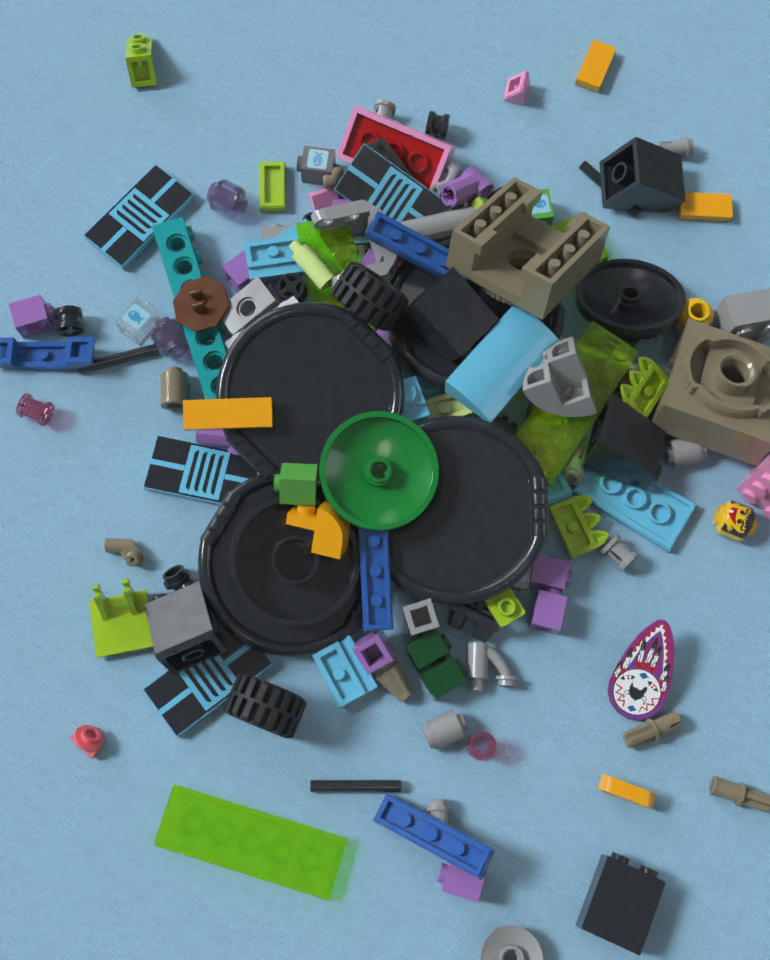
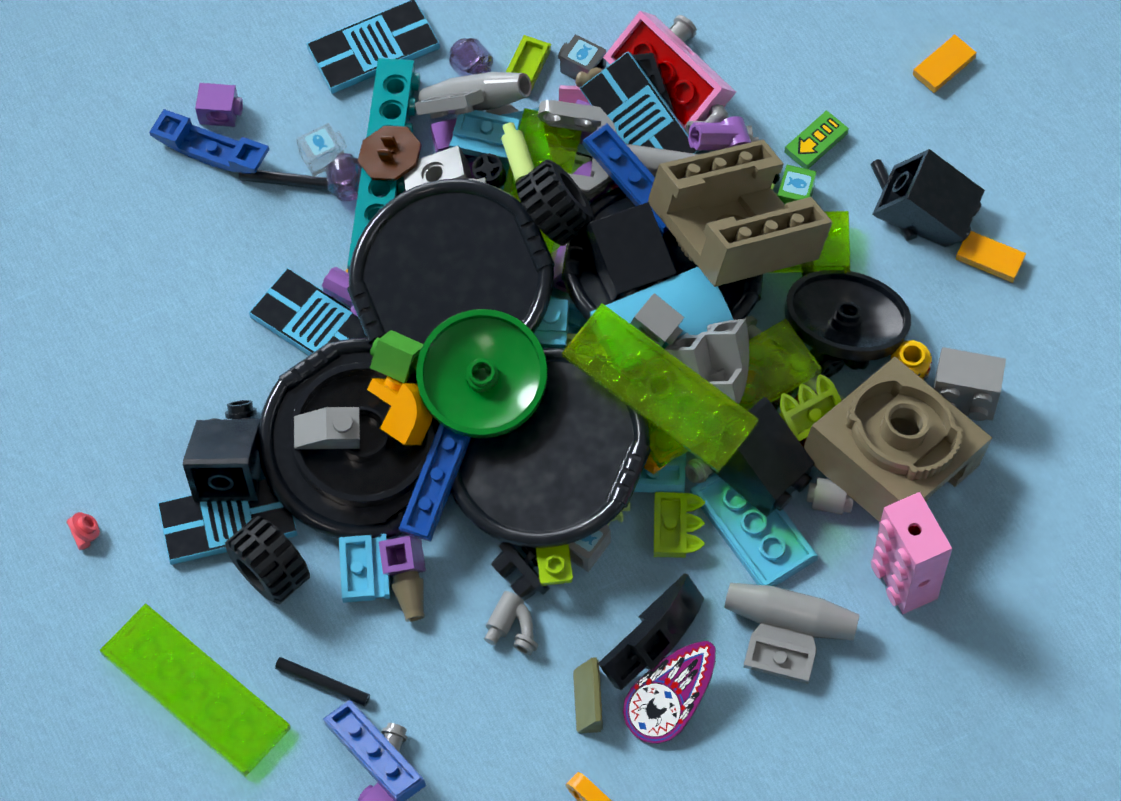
camera: 30 degrees right, 10 degrees down
(34, 409) = (178, 196): clear pink bush -> none
(69, 320) = (252, 122): black wheel -> none
(119, 621) = (164, 429): lime plate -> none
(128, 549) = (206, 366): dark tan arm -> none
(173, 388) = (325, 229): dark tan brick -> none
(228, 413) = (359, 262): light orange tile -> none
(246, 227) = (473, 93): none -> light grey plate
(268, 573) = (328, 429): none -> light grey slope
(420, 617) = (464, 544): light grey brick -> none
(435, 665) = (458, 597): dark green piece -> none
(437, 125) = (732, 64): black wheel -> none
(444, 729) = (437, 663): light grey brick -> none
(485, 737) = (473, 699): clear pink bush -> none
(507, 368) = (658, 321): none -> light grey brick
(517, 89) = (844, 58): bright pink slope -> none
(530, 160) = (816, 140): none -> bright green tile
(535, 424) = (660, 387): none -> clear neon green plate
(547, 610) = (601, 594): medium lavender brick -> none
(550, 573) = (620, 558): medium lavender brick -> none
(578, 703) = (588, 697): none -> olive slope
(613, 625) = (656, 635): none -> black slope
(619, 552) = (707, 567): light grey bush -> none
(652, 730) = (651, 754): dark tan axle -> none
(682, 147) = (991, 182): light grey pin -> none
(706, 573) = (787, 627): none -> light grey plate
(735, 520) = (849, 586): yellow head -> none

